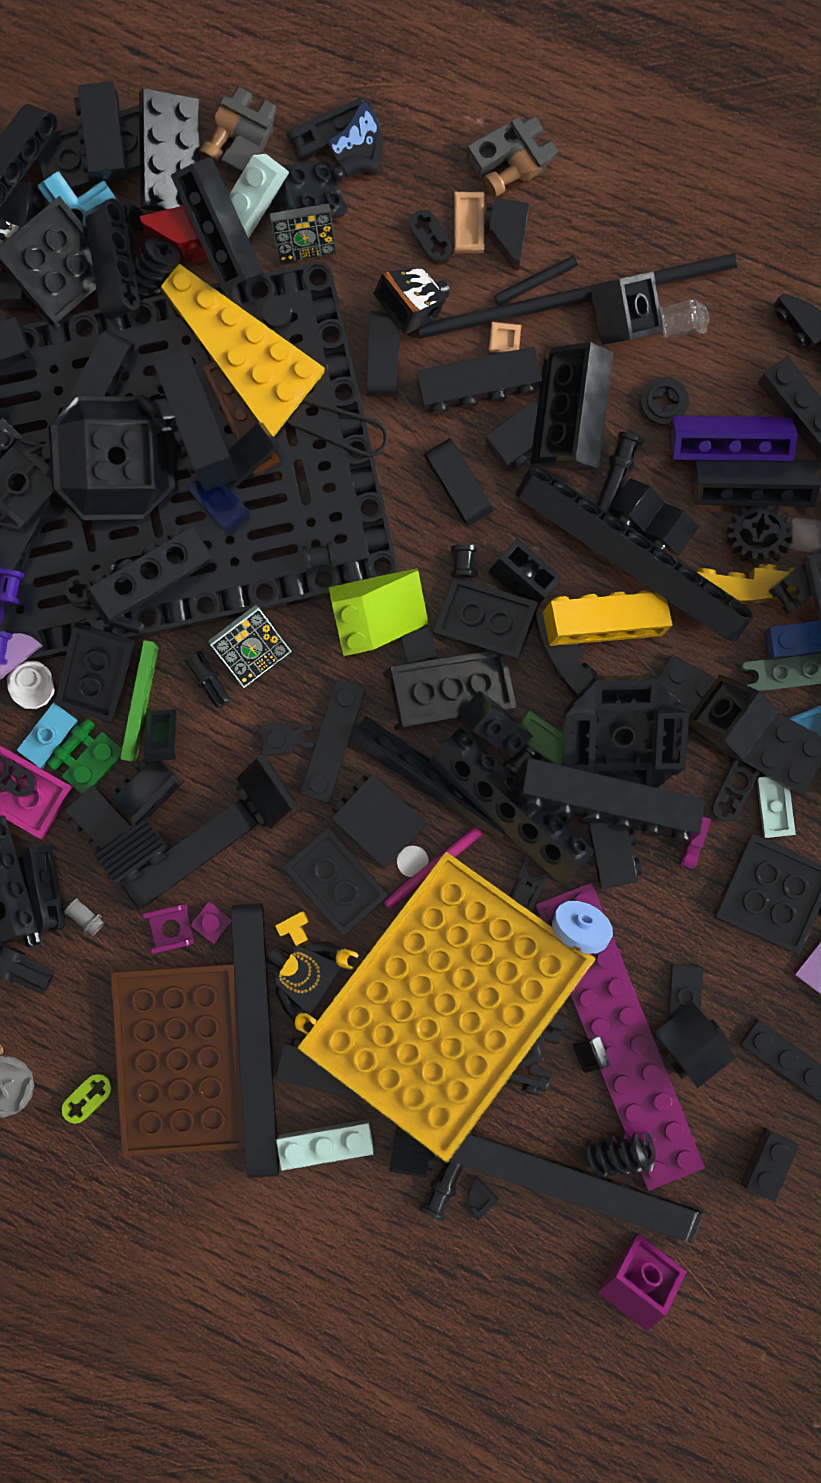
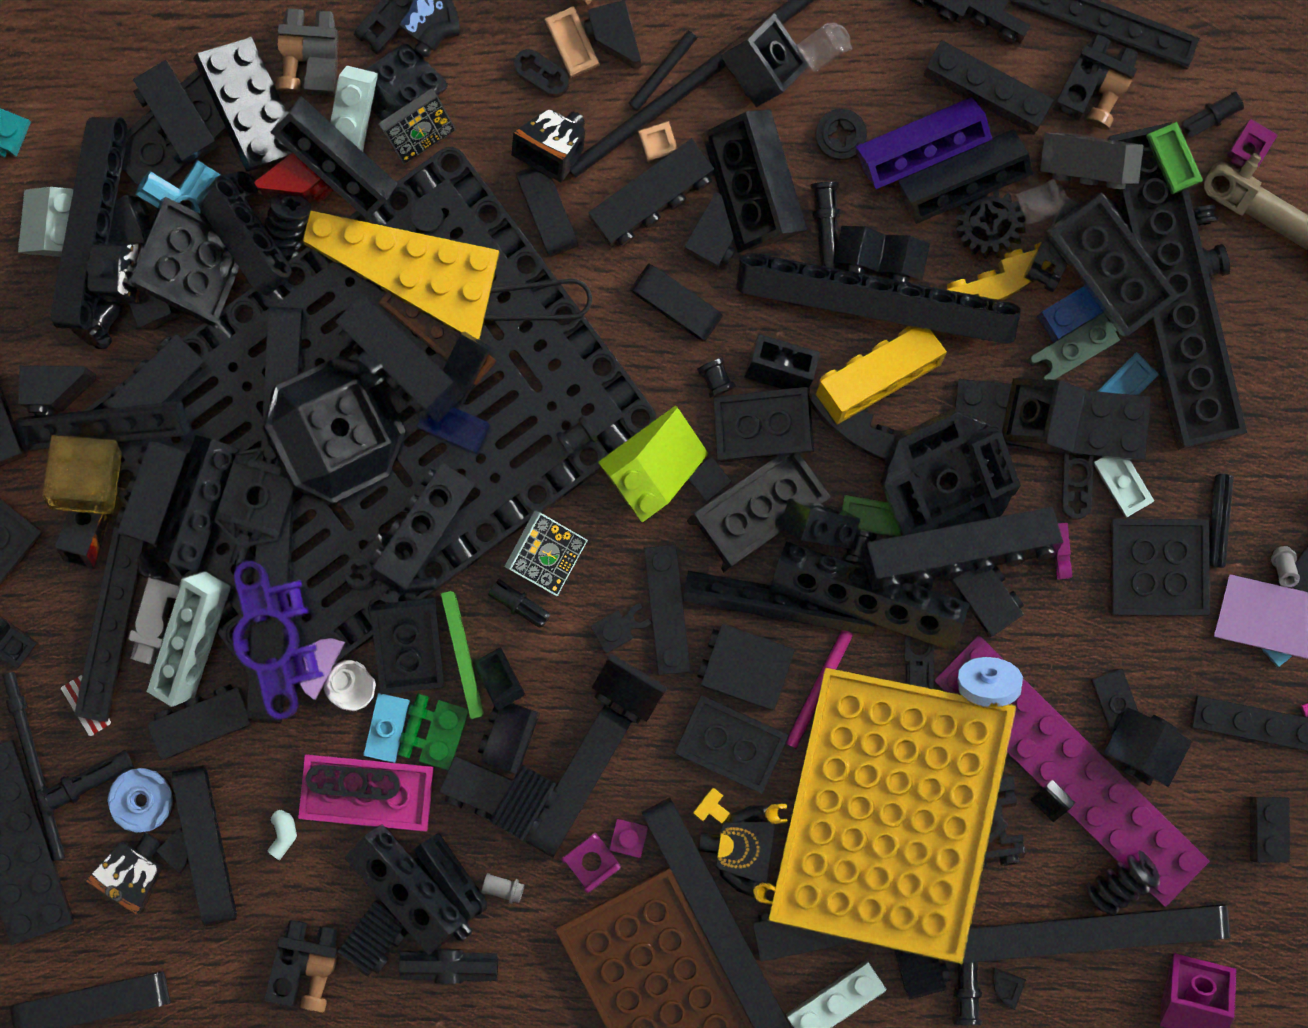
camera: 25 degrees left, 0 degrees up
(412, 860) = (795, 691): white sticker -> none

